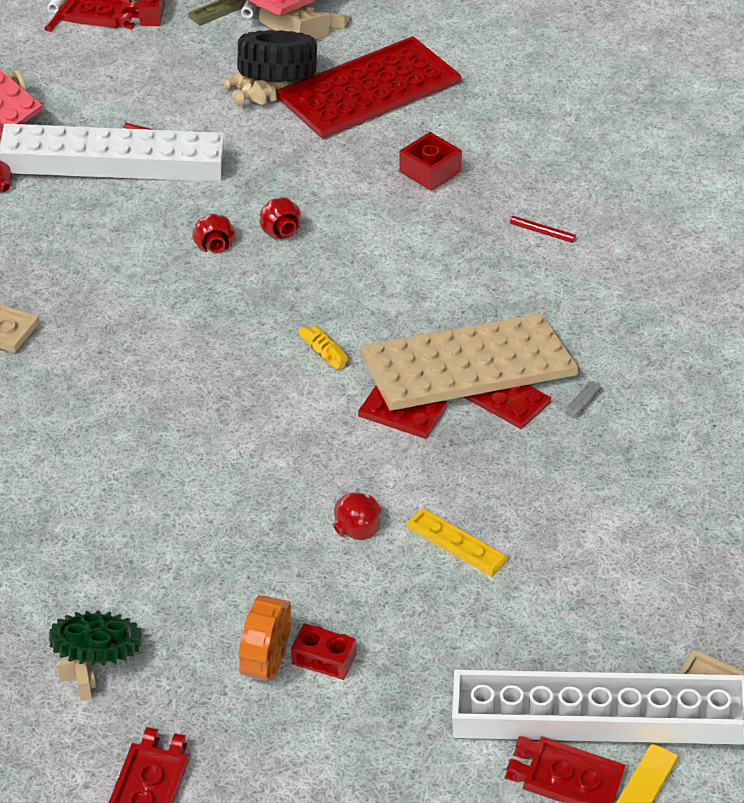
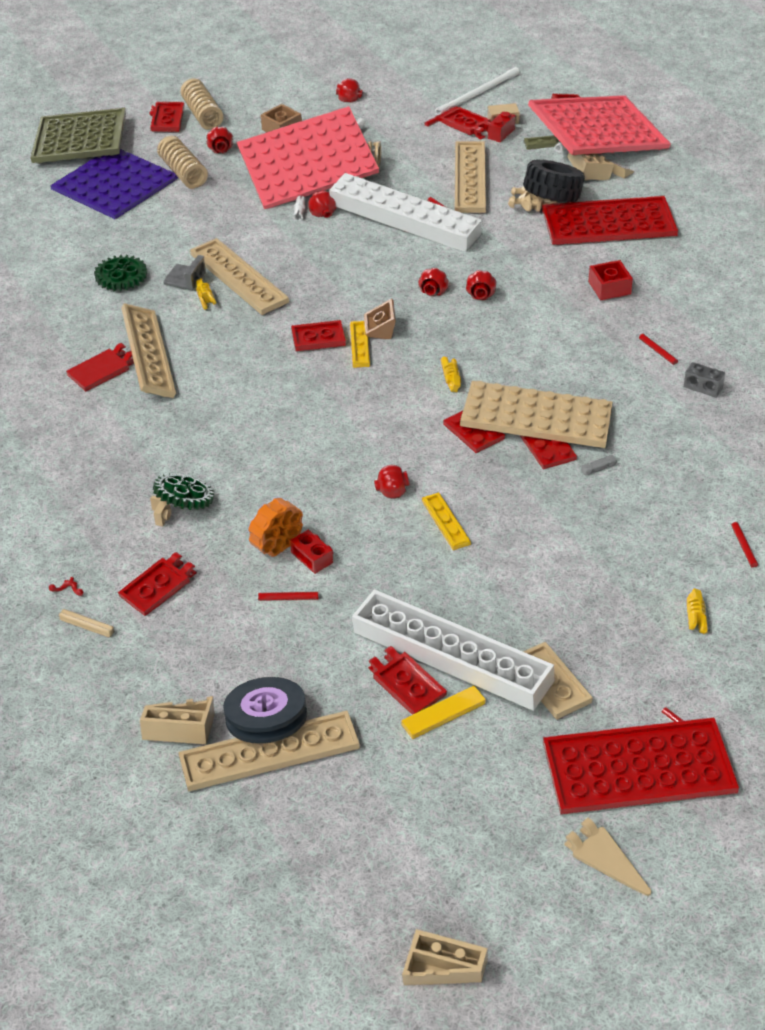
camera: 30 degrees right, 0 degrees up
(114, 355) = (318, 335): none -> red plate
(157, 81) = (470, 177): none -> tan plate
(175, 348) = (359, 345): none -> yellow tile
(187, 306) = (380, 321): none -> medium nougat slope
(333, 725) = (288, 596): none -> red bar
(627, 249) = (704, 379): none -> flat silver brick

